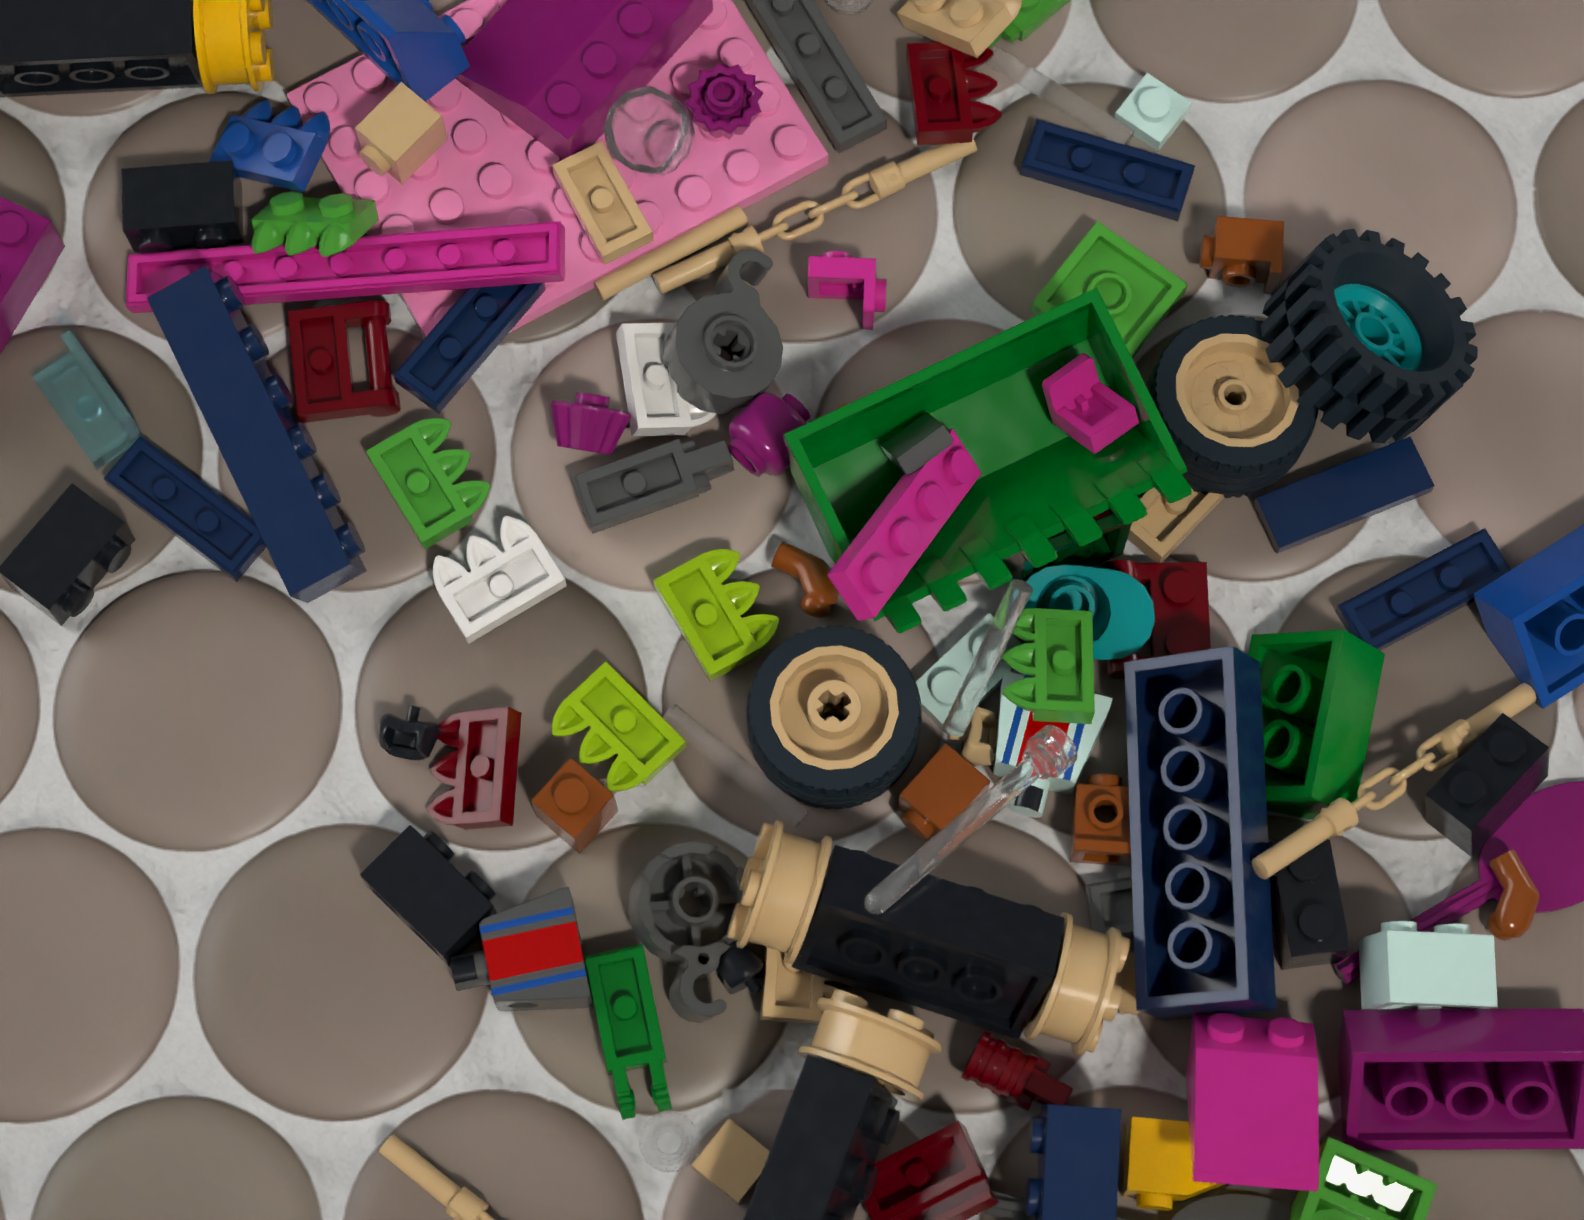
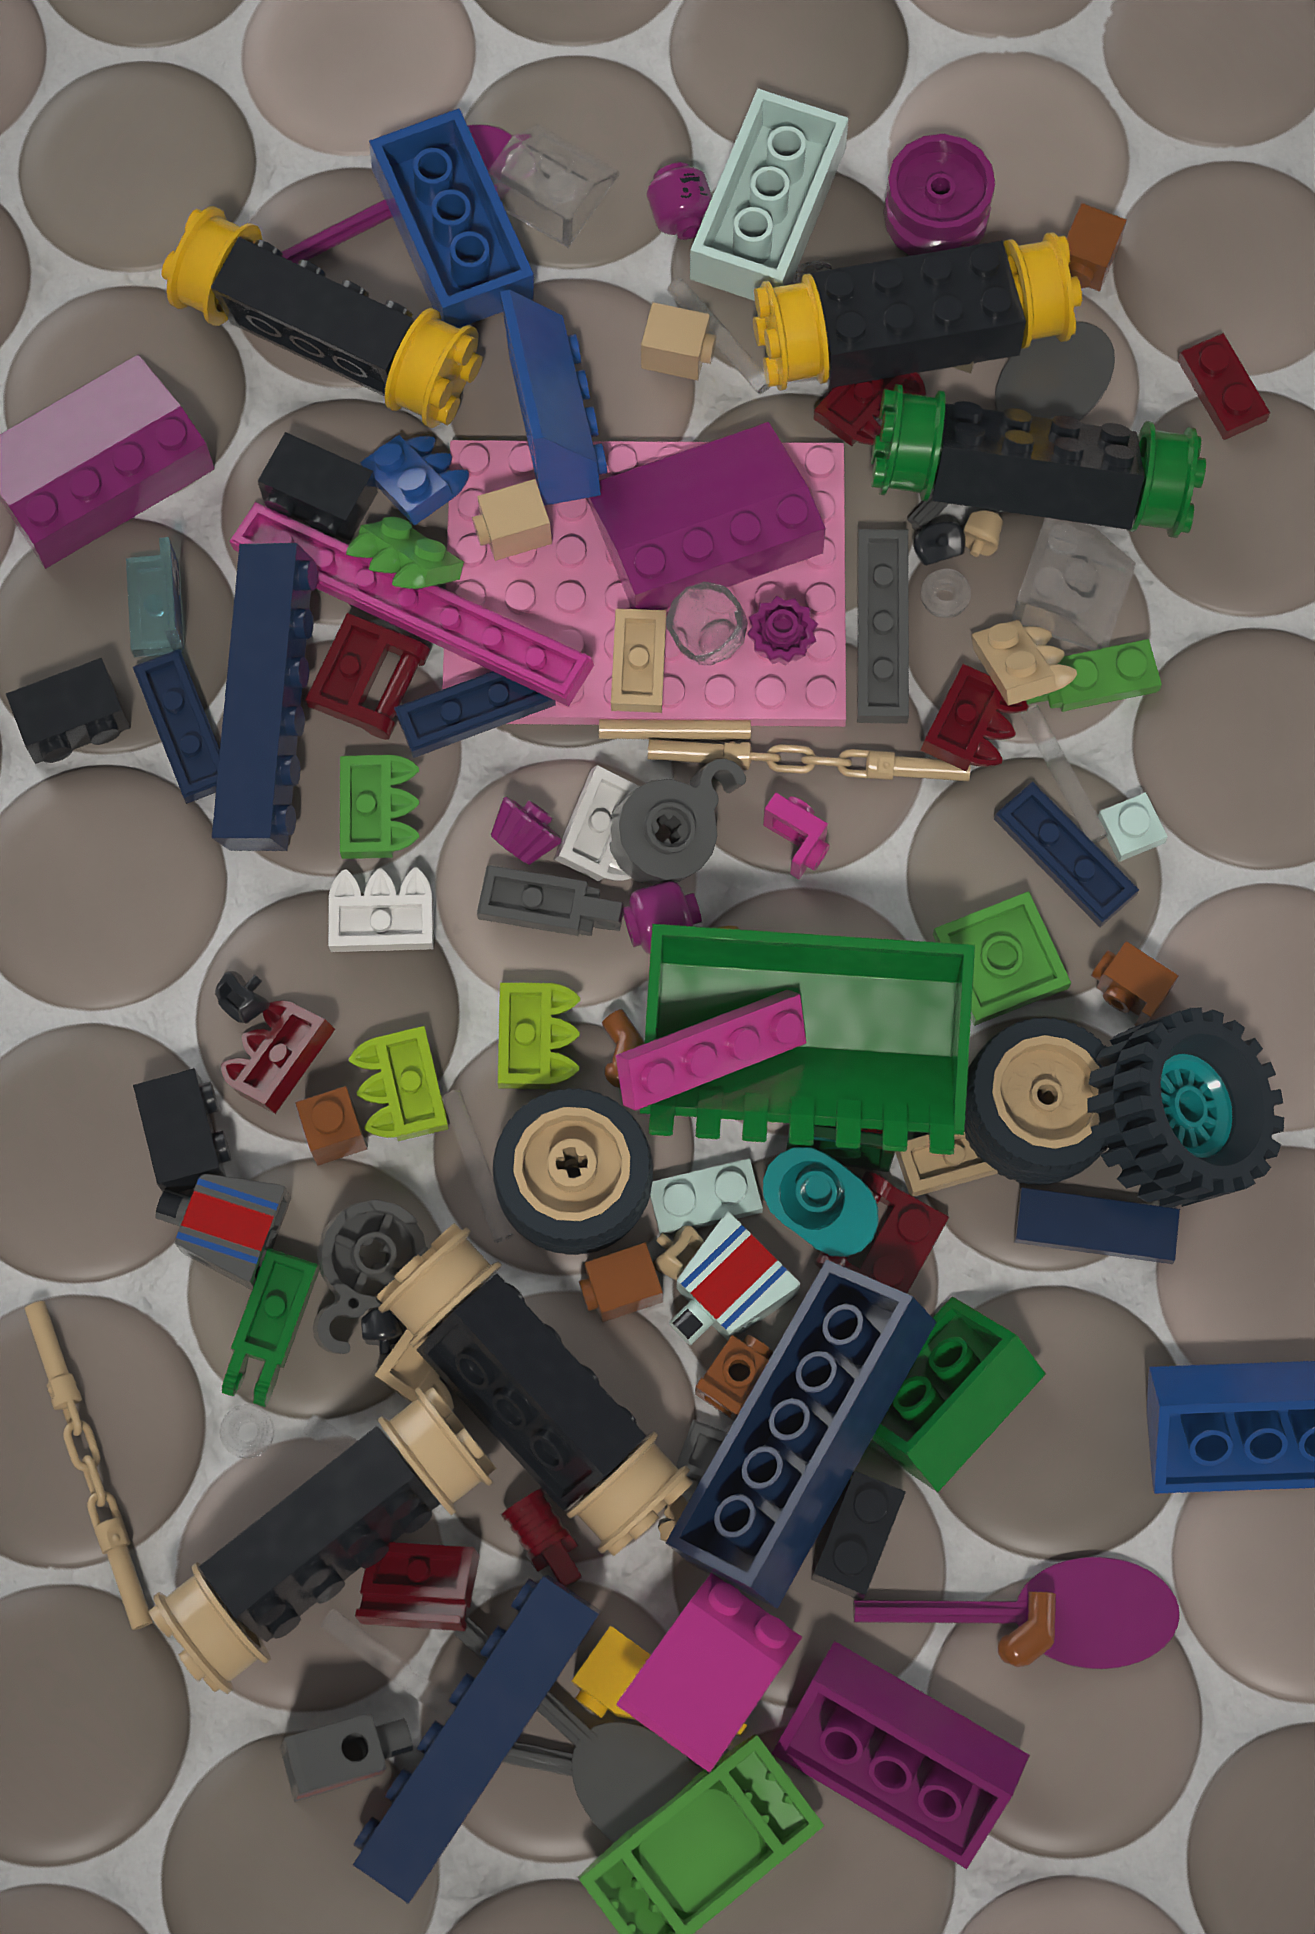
camera: 30 degrees right, 0 degrees up
(732, 1161) = (283, 1471): tan tile -> none
(917, 443) = (762, 990): dark grey tile -> none
(987, 657) = (716, 1193): clear bar -> none
(1046, 755) = (715, 1298): clear piece -> none
(1057, 665) = (769, 1228): bright green plate -> none
(1086, 406) = (919, 1035): dark pink bracket -> none
(1343, 816) = (1058, 1478): tan piece -> none
(1423, 592) = (1112, 1342): dark blue tile -> none
(1427, 968) = (921, 1649): light aqua brick -> none
(1487, 784) = (1064, 1528): black brick -> none

